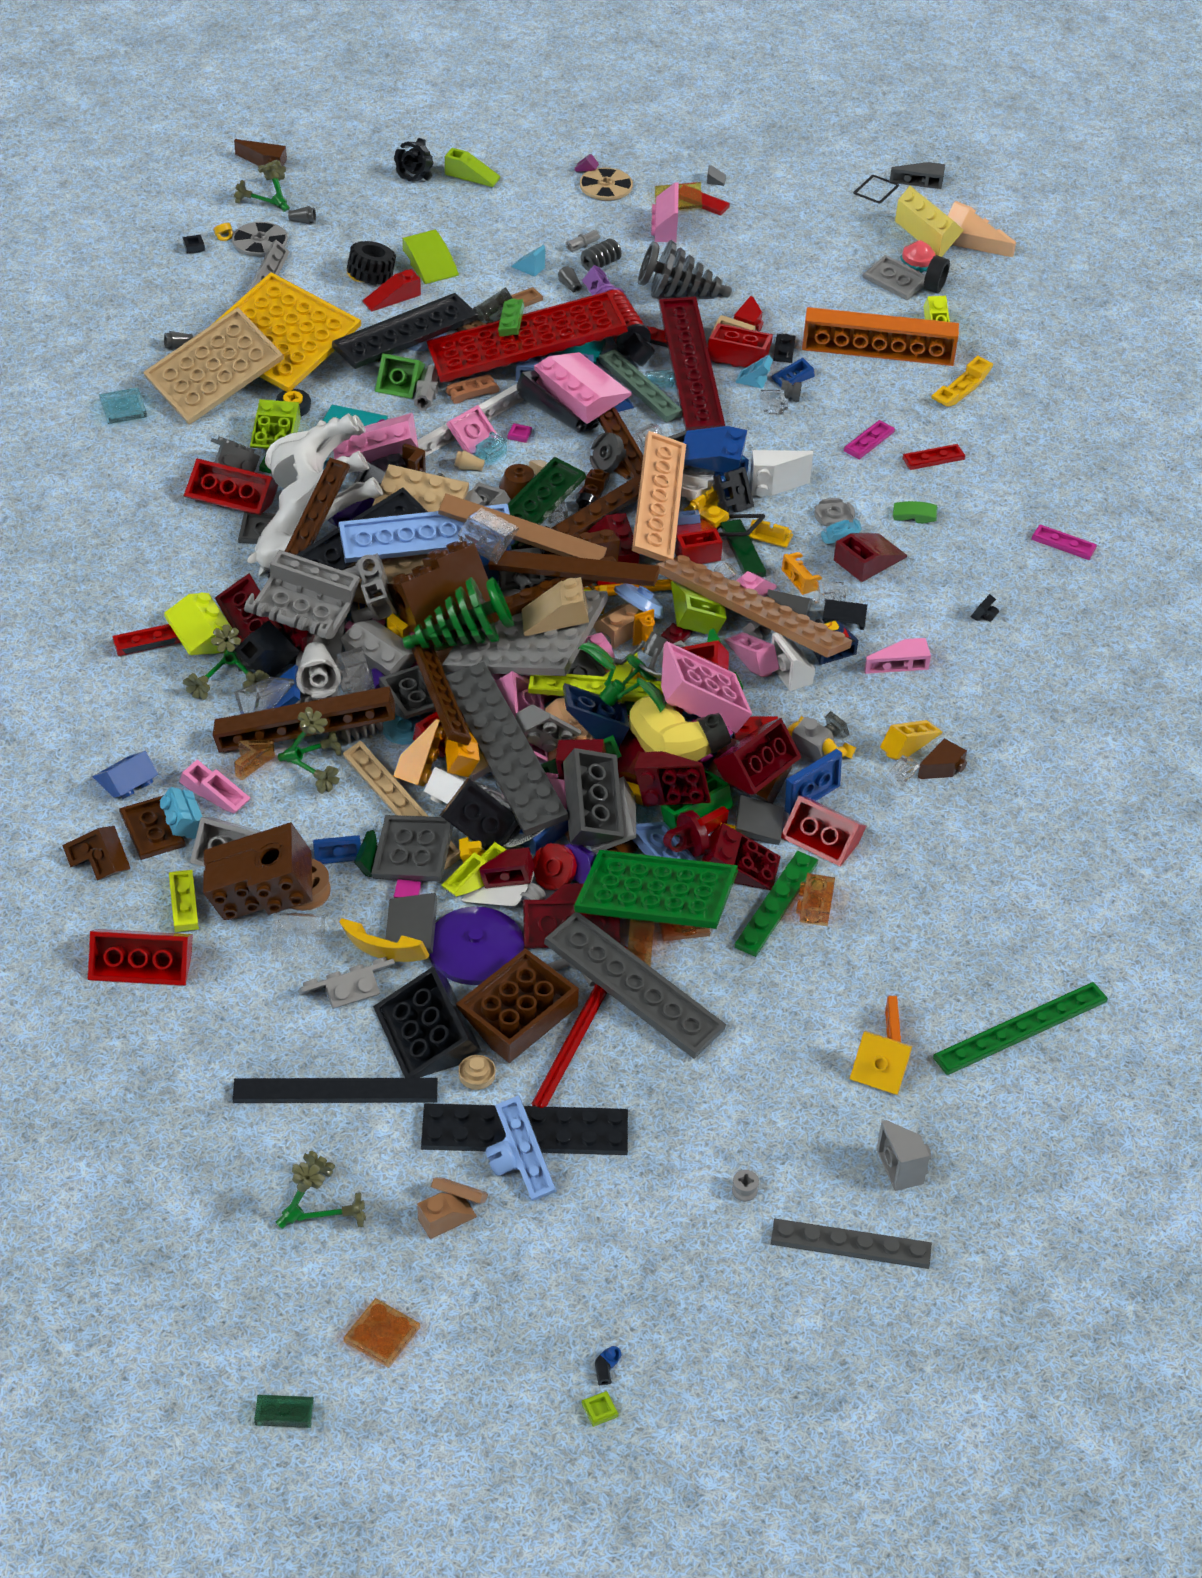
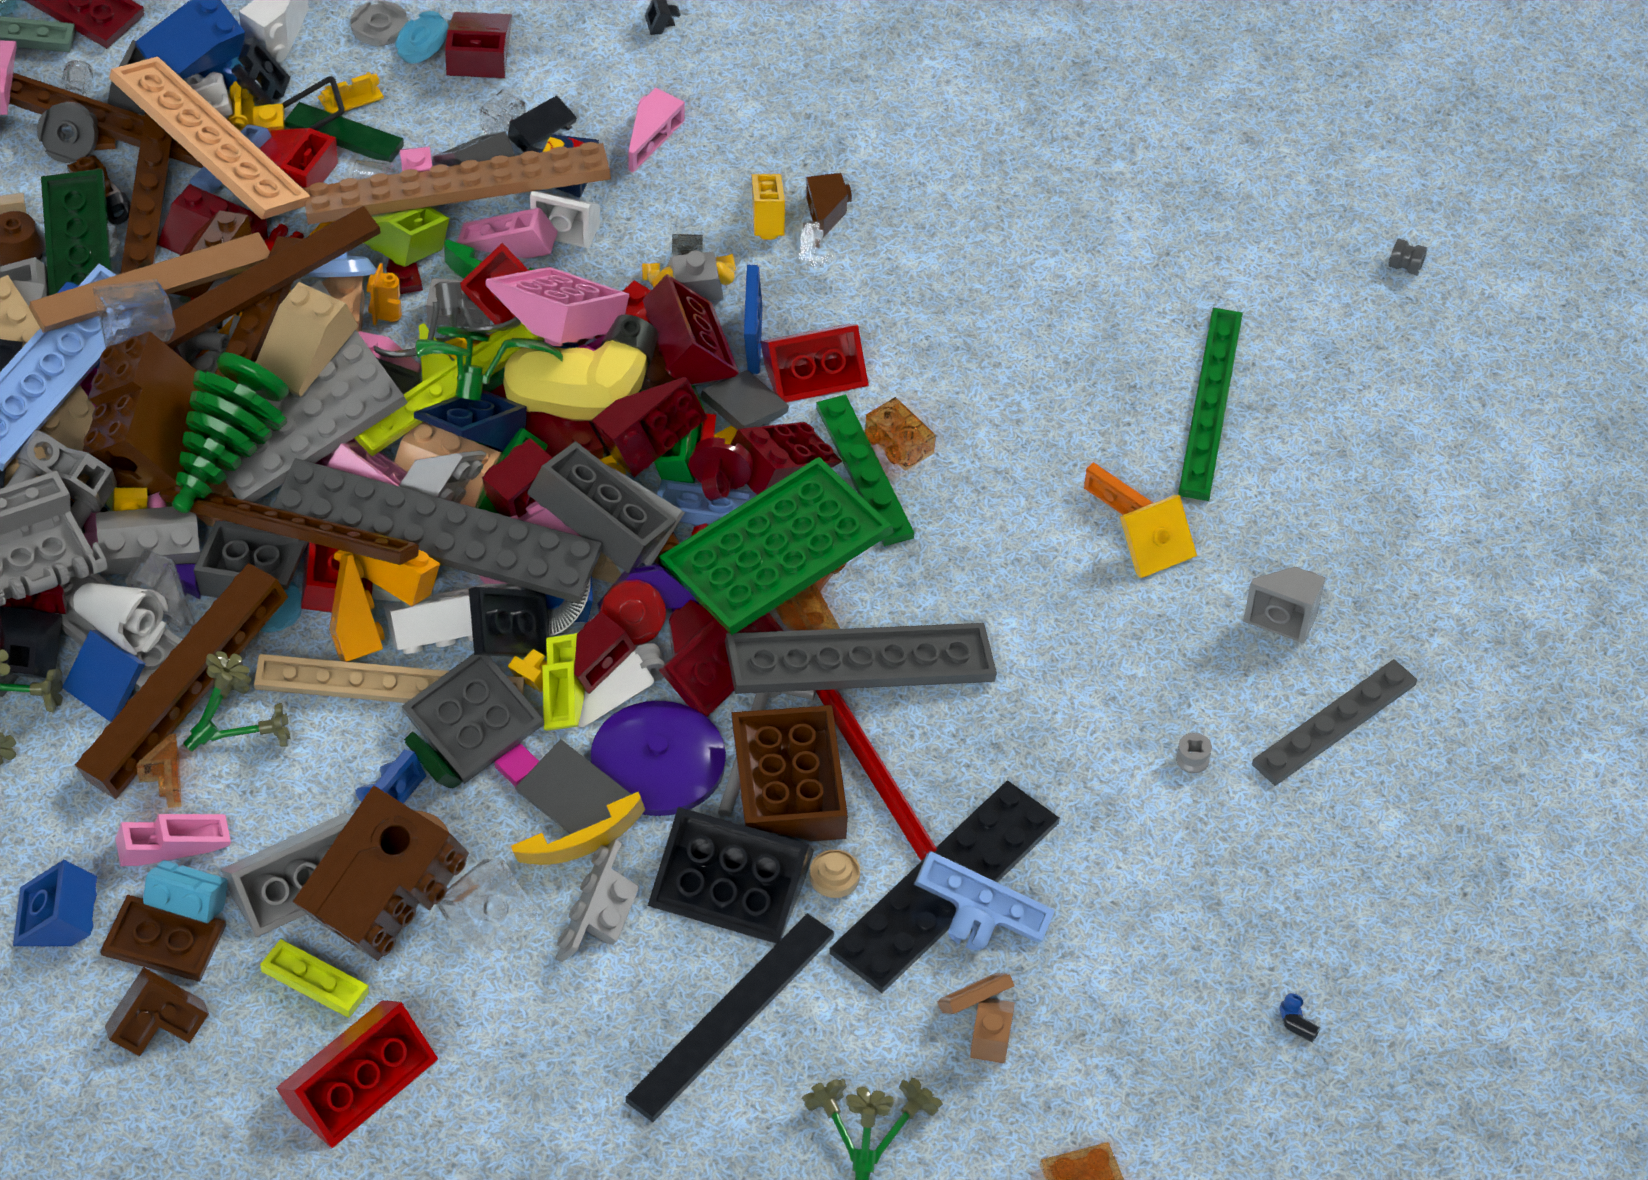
camera: 50 degrees left, 5 degrees up
(262, 694) = (89, 694): clear slope -> none
(600, 1408) = (1342, 1060): lime tile -> none
(754, 629) = (475, 210): light grey tile -> none
(799, 574) = (439, 117): light orange hinge -> none

